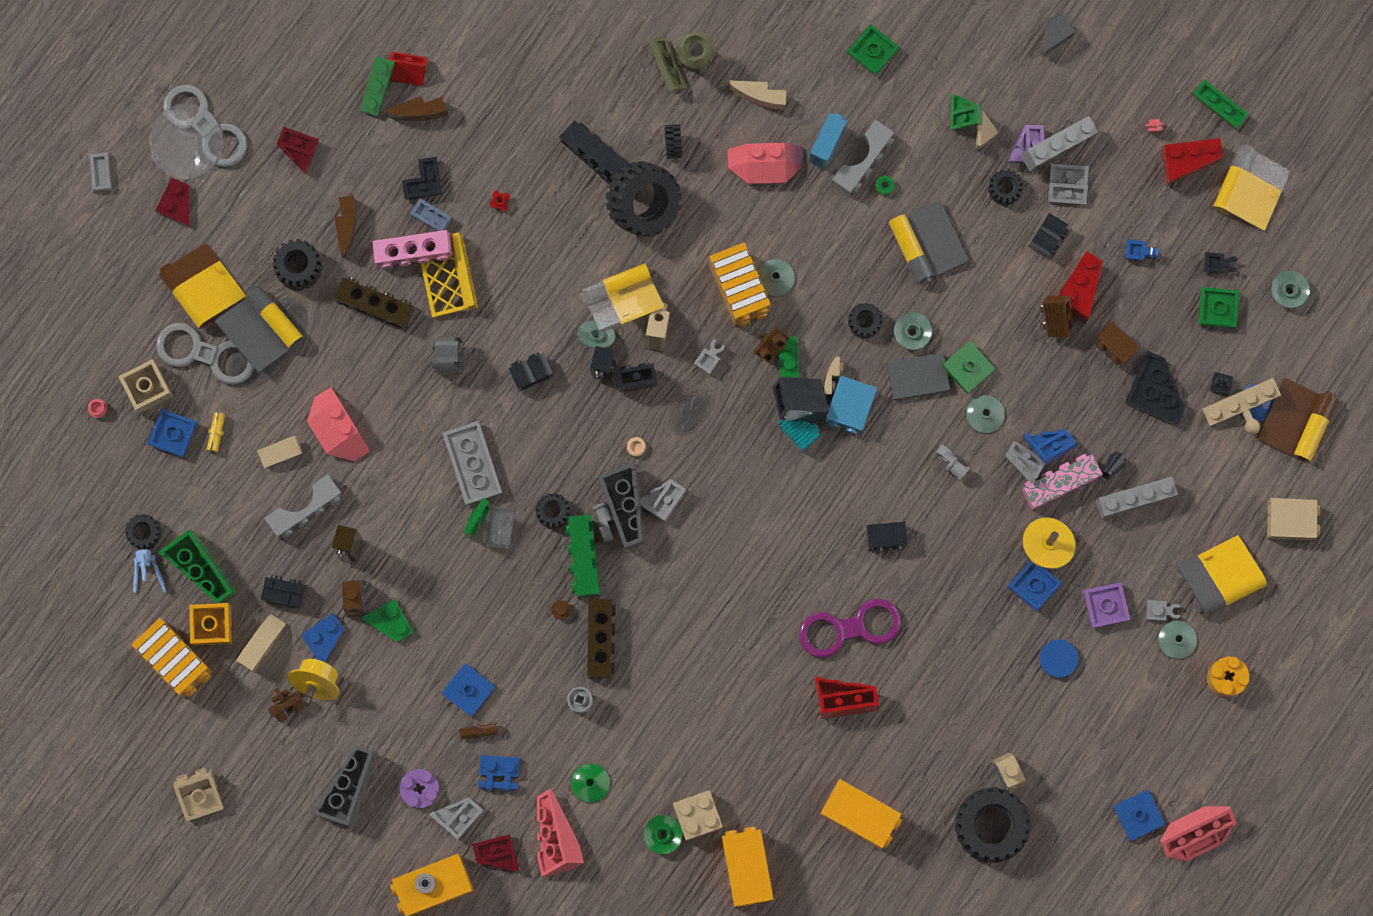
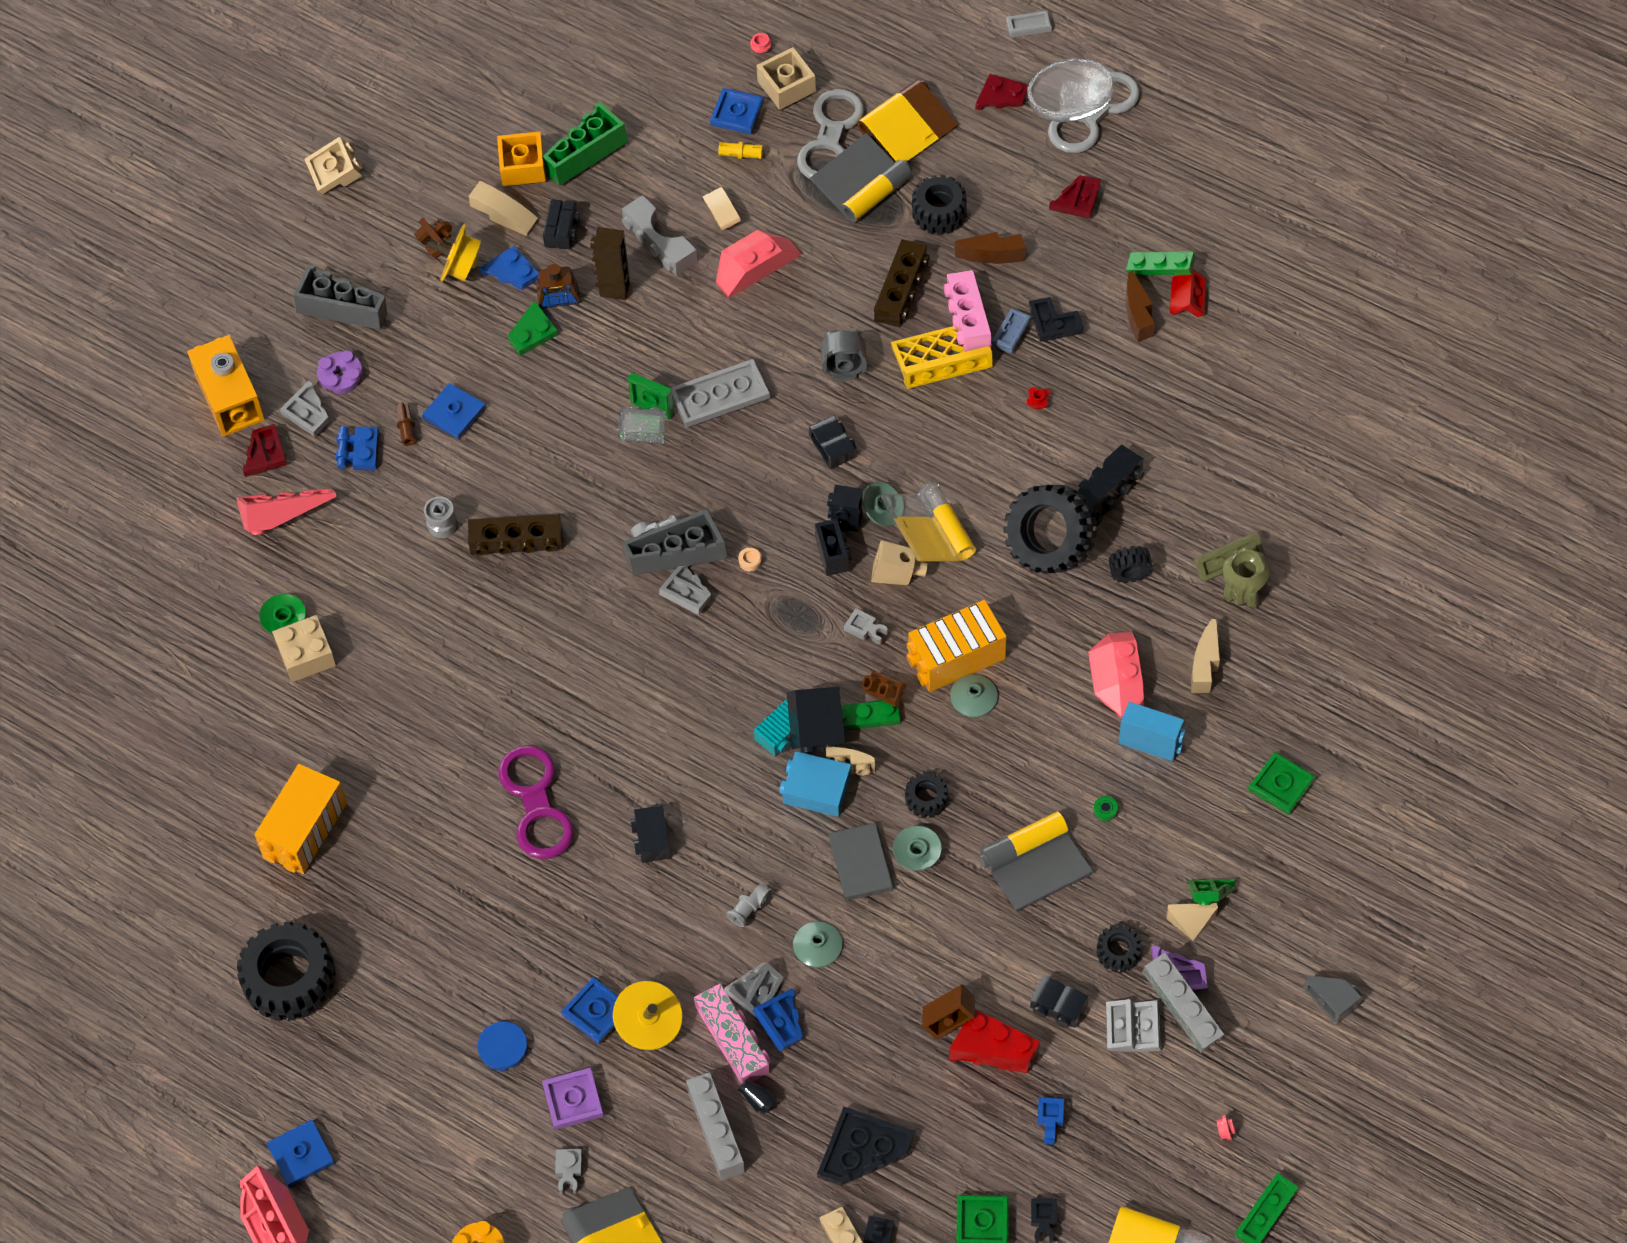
camera: 90 degrees right, 20 degrees down
(131, 529) = (623, 84): black tyre -> none
(143, 560) = (591, 95): light blue plant -> none
(172, 658) = (473, 127): light orange brick -> none
(553, 499) = (667, 466): black tyre -> none
(560, 609) = (549, 494): reddish brown plate -> none
(583, 555) = (613, 508): green wedge -> none
(590, 793) = (348, 549): green dish -> none
(747, 867) = (238, 700): light orange brick -> none
(844, 698) = (444, 793): red wedge -> none
(849, 177) = (1161, 793): light grey arch -> none
(968, 367) = (875, 916): green plate -> none
(1009, 772) = (352, 989): tan torso -> none
(1116, 344) = (918, 1090): reddish brown brick -> none
(1170, 646) = (531, 1204): sand green dish -> none
(1189, 157) = (1184, 1171): red wedge -> none

